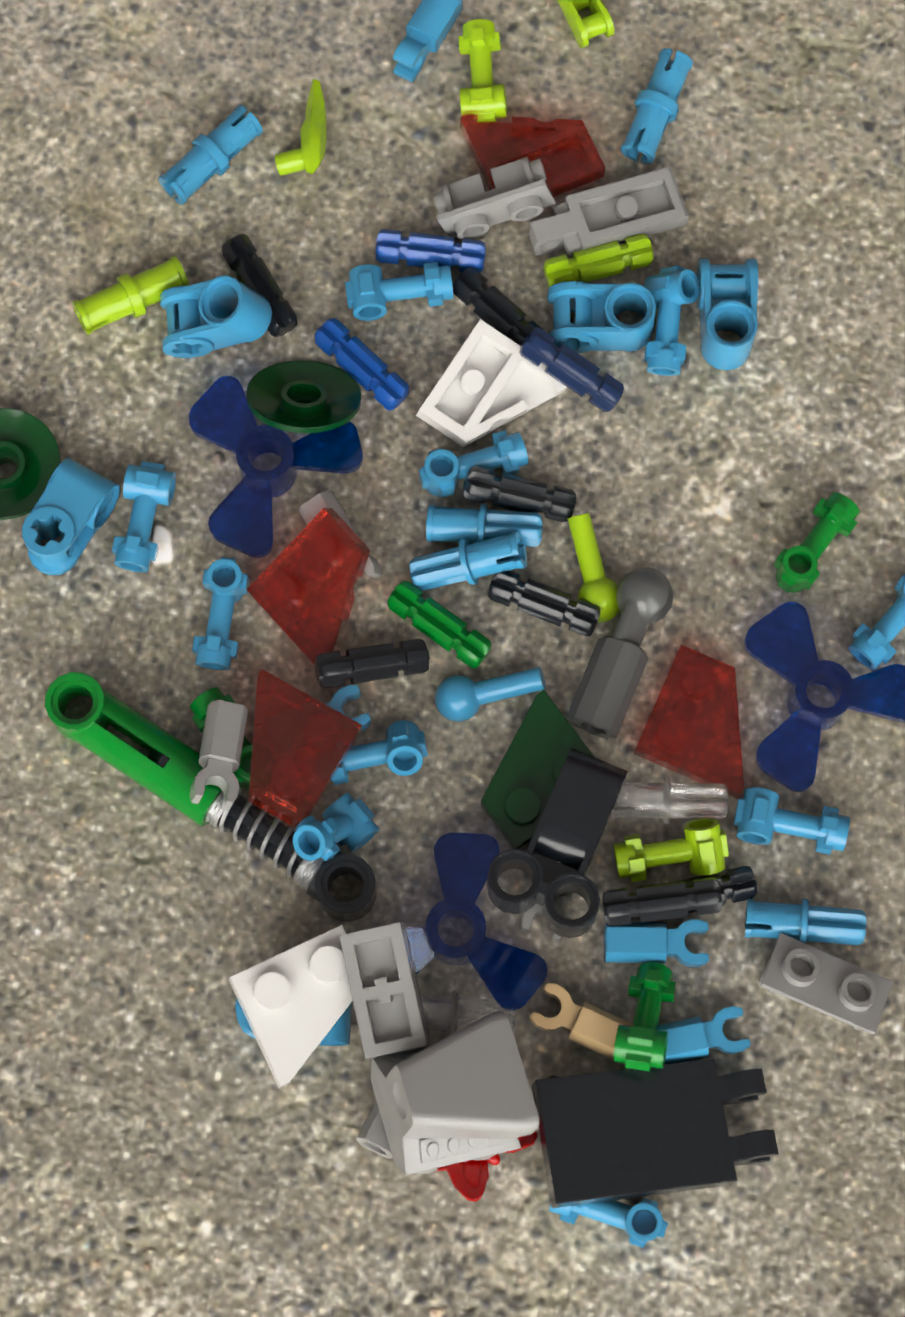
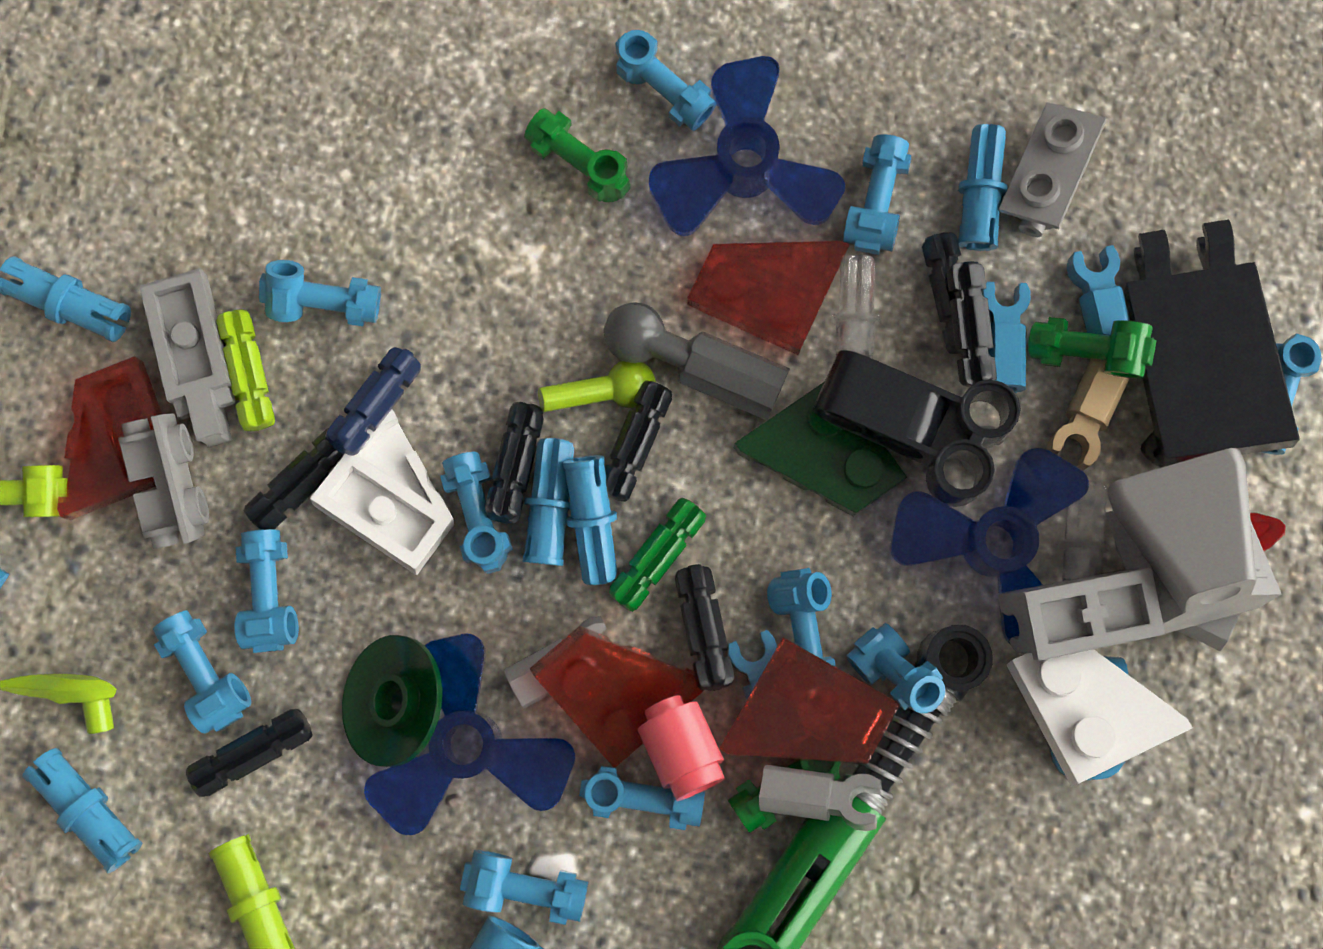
camera: 85 degrees left, 5 degrees up
(212, 316) = (286, 818): dark azure piece -> none
(262, 638) = (681, 747): none -> coral brick
(304, 256) = (217, 700): none -> dark azure bar
(361, 363) = (351, 636): blue axle -> none
(429, 248) = (218, 556): blue axle -> none
(460, 697) = (736, 534): dark azure bar -> none
(596, 314) = (315, 381): dark azure piece -> none
(702, 846) = (909, 285): lime bar -> none
(727, 303) = (303, 228): dark azure piece -> none

